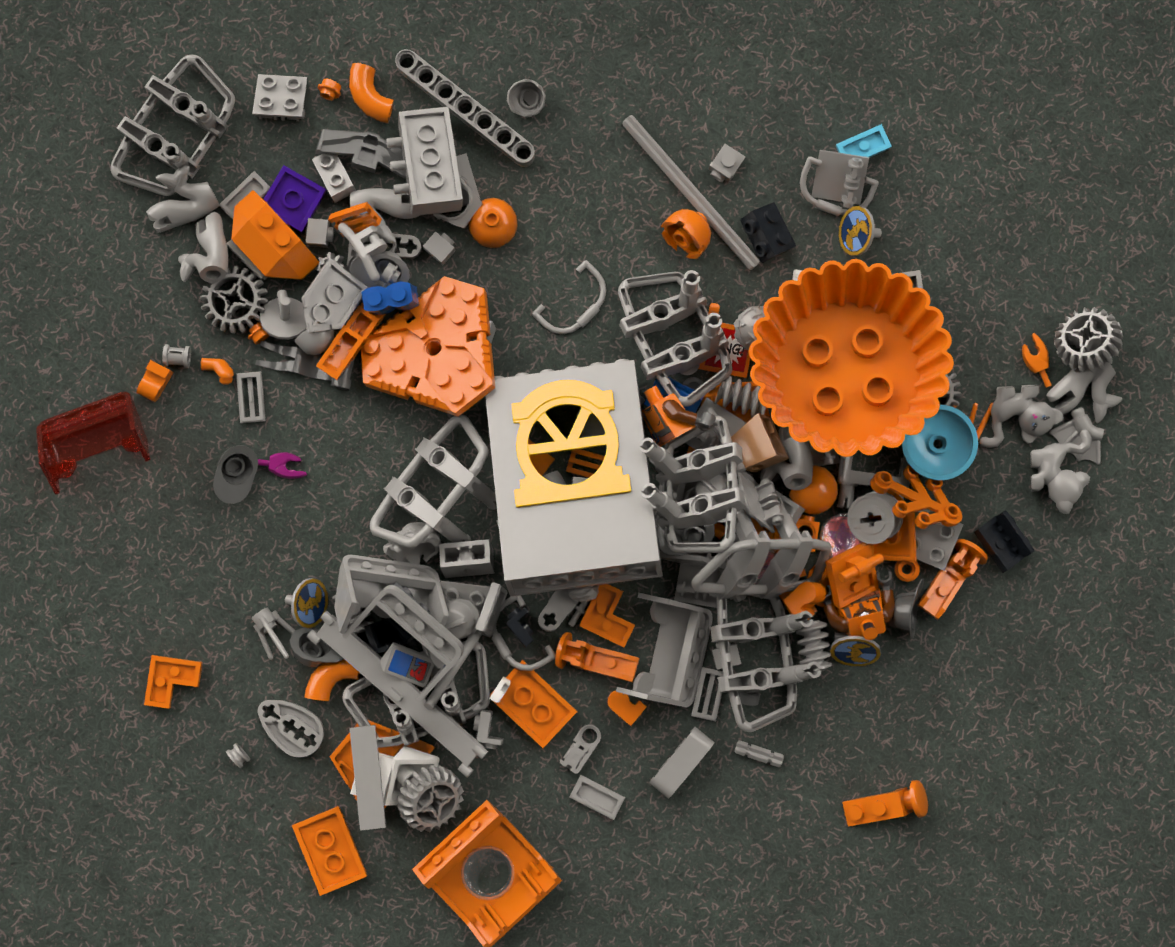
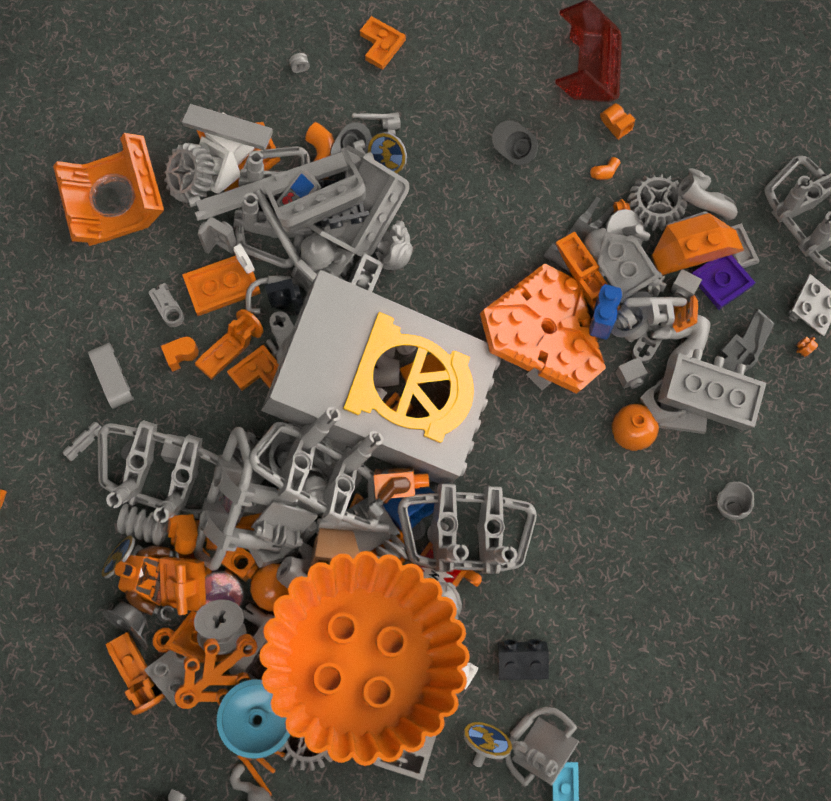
camera: 115 degrees right, 15 degrees down
(176, 356) = (629, 143): light grey bush -> none
(180, 212) = (747, 188): light grey piece -> none
(243, 419) = (569, 191): light grey tile -> none
(278, 463) = (508, 181): magenta hand -> none
(286, 740) = (304, 118): light grey piece -> none
(329, 850) = (199, 90): orange plate -> none
(334, 176) = (728, 317): light grey plate -> none
(365, 94) = (790, 371): orange cylinder -> none
(449, 467) = (436, 295): light grey piece -> none
(457, 99) = (756, 442): light grey beam -> none
(587, 315) = (519, 470): light grey piece -> none
(597, 797) = (122, 301): light grey tile -> none
(677, 653) = (192, 408): light grey windscreen -> none
(688, 231) = (555, 586): orange cylinder -> none
(690, 192) = (589, 608): light grey axle -> none
(704, 715) = (138, 411): light grey tile -> none
(726, 164) = (602, 651): light grey bracket -> none
(1004, 541) = (141, 739): black bracket -> none

